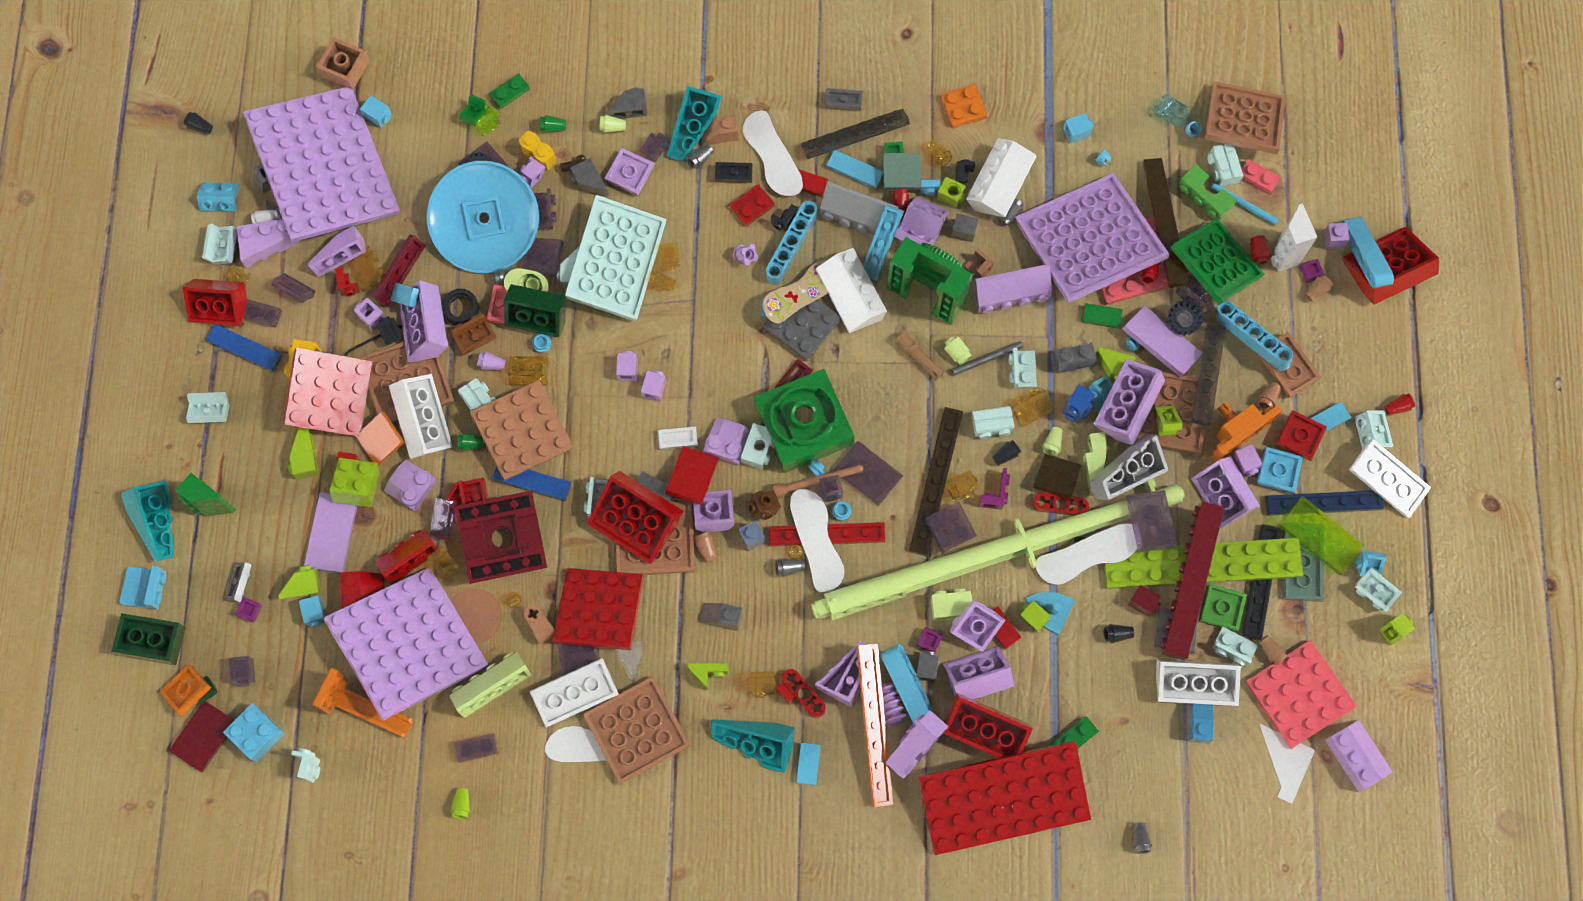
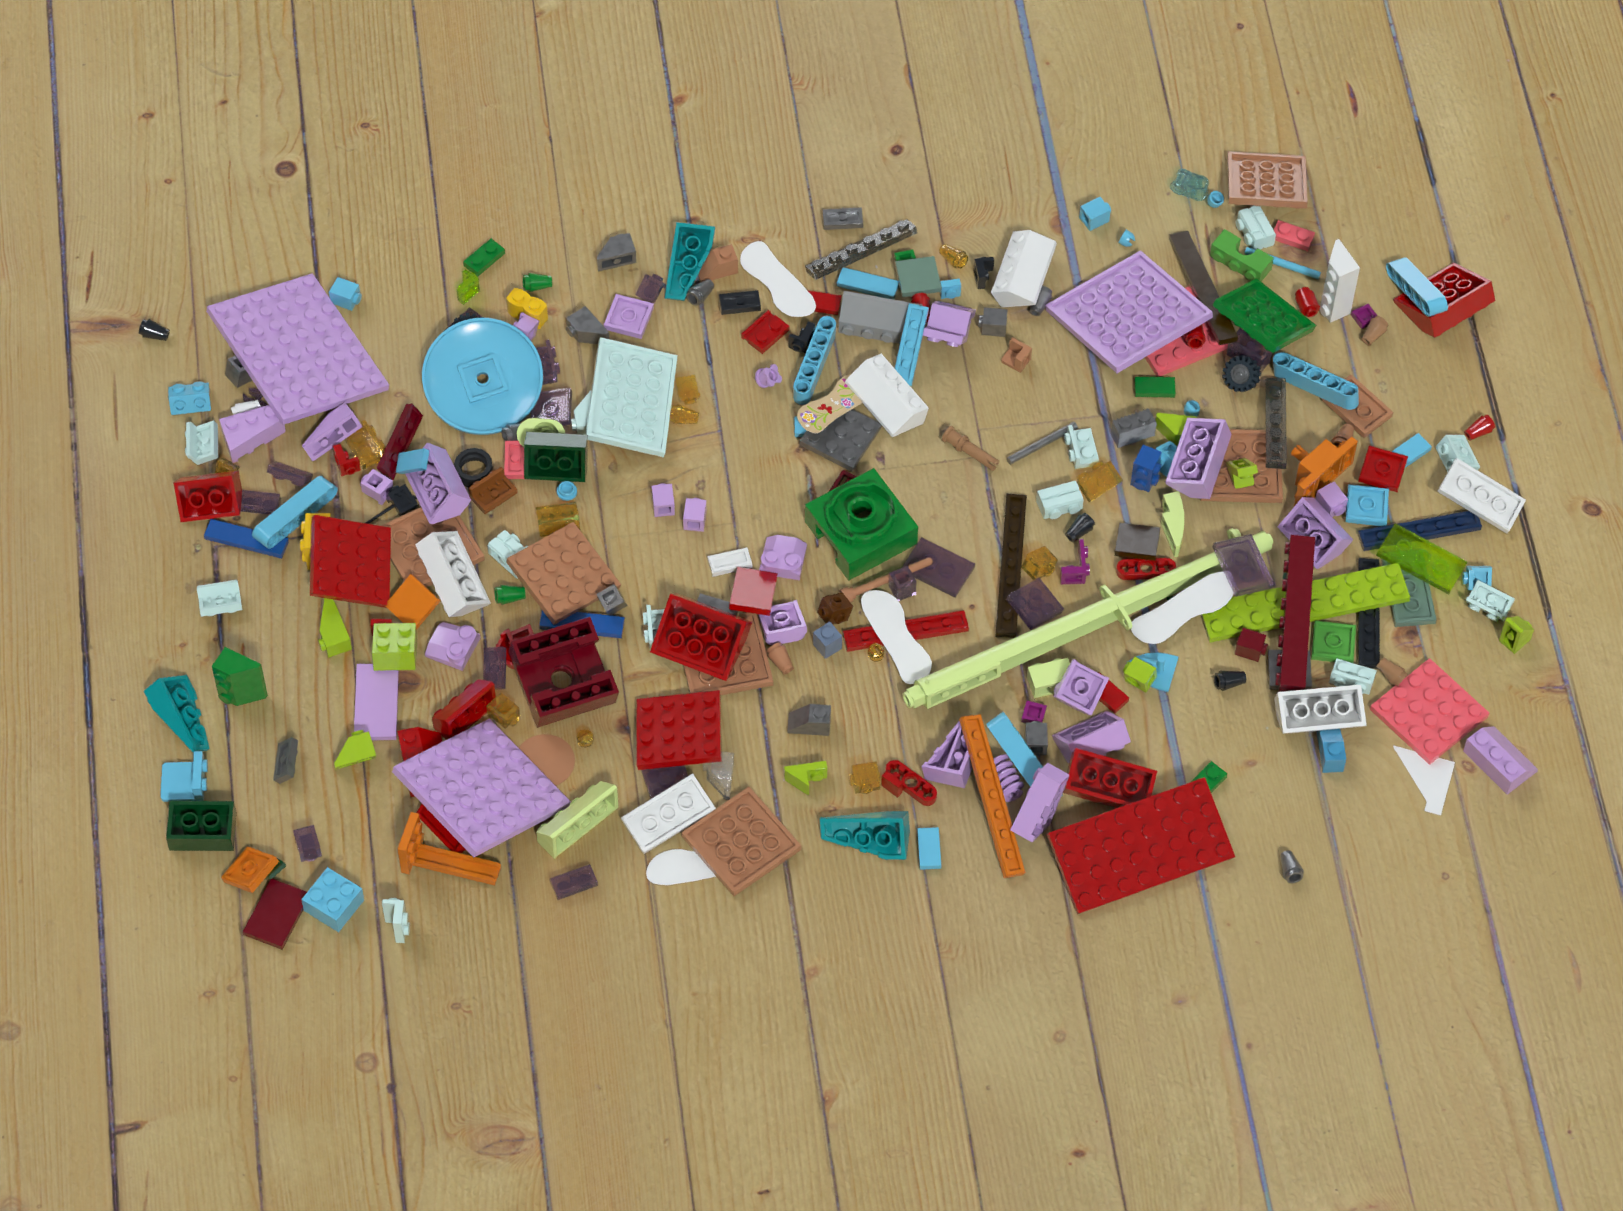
camera: 10 degrees left, 15 degrees down
(248, 609) = (302, 785): magenta plate -> none
(290, 328) = (292, 512): none -> medium azure beam
(313, 611) = (372, 776): medium azure brick -> none
(343, 63) = (301, 251): nougat brick -> none
(460, 805) = (568, 939): lime cone -> none
(473, 111) = (450, 278): green bracket -> none
(490, 362) = (516, 515): lavender cone -> none
(540, 626) = (617, 754): nougat piece -> none
(561, 464) = (611, 600): none -> flat silver brick
(567, 165) = (561, 320): dark brown arm -> none
(611, 124) = (600, 273): yellowish green cone -> none
(753, 457) = (816, 567): light aqua brick -> none
(786, 567) = (871, 665): flat silver cone -> none
(817, 467) = (882, 567): medium azure plate -> none
(841, 510) = (917, 606): medium azure plate -> none
(934, 270) = (971, 360): green piece -> none
(951, 185) = (973, 284): lime brick -> none
(957, 350) = (1009, 438): yellowish green brick -> none
(963, 106) = (970, 209): orange plate -> none
(1012, 289) = (1055, 370): lavender slope -> none
(1053, 442) = (1126, 511): yellowish green cone -> none
(1133, 467) = (1215, 517): light grey wedge -> none
(1162, 342) = (1222, 401): lavender tile -> none
(1336, 236) = (1383, 278): lavender brick -> none

